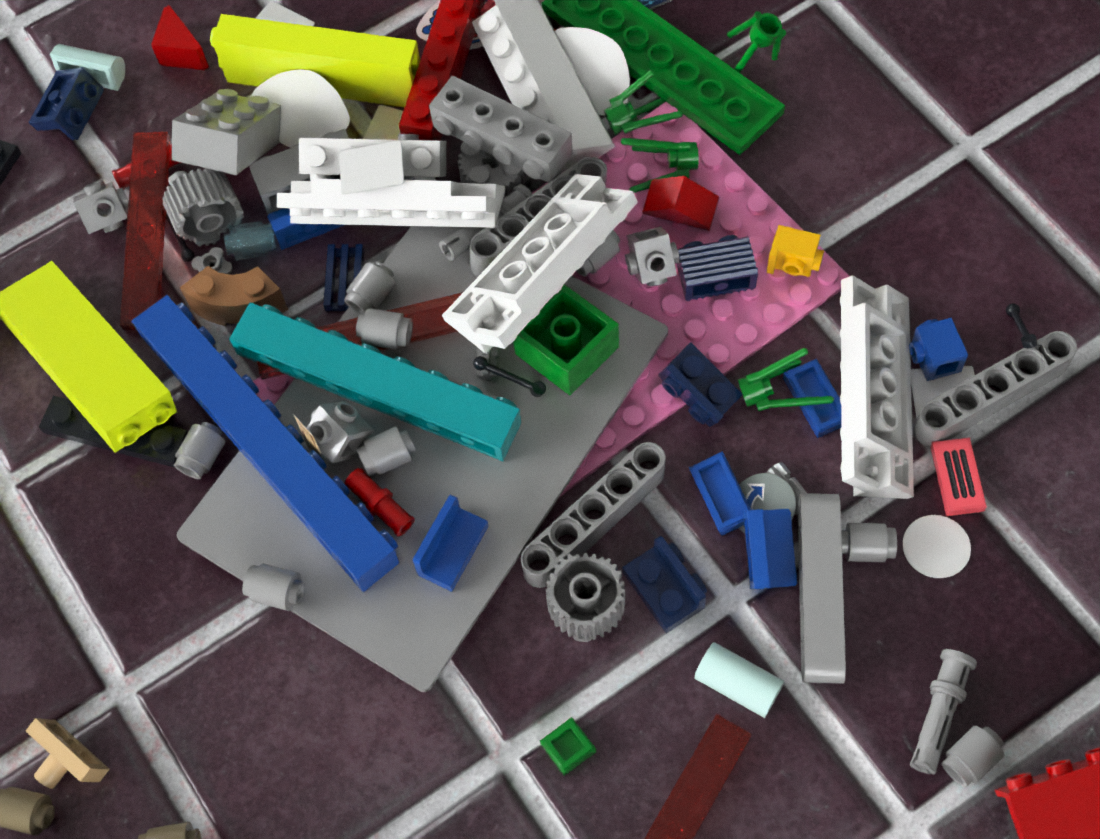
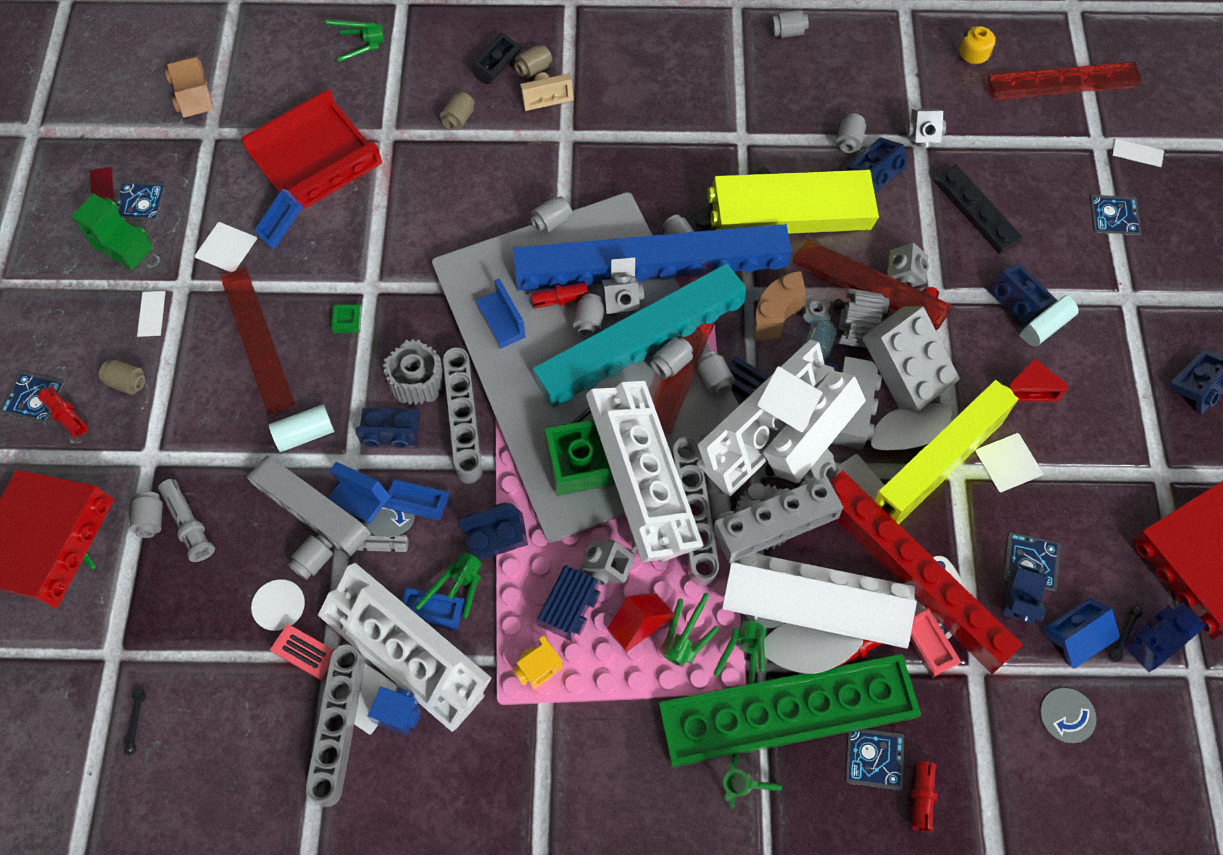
camera: 120 degrees right, 0 degrees up
(1028, 340) = (342, 766): black hinge -> none

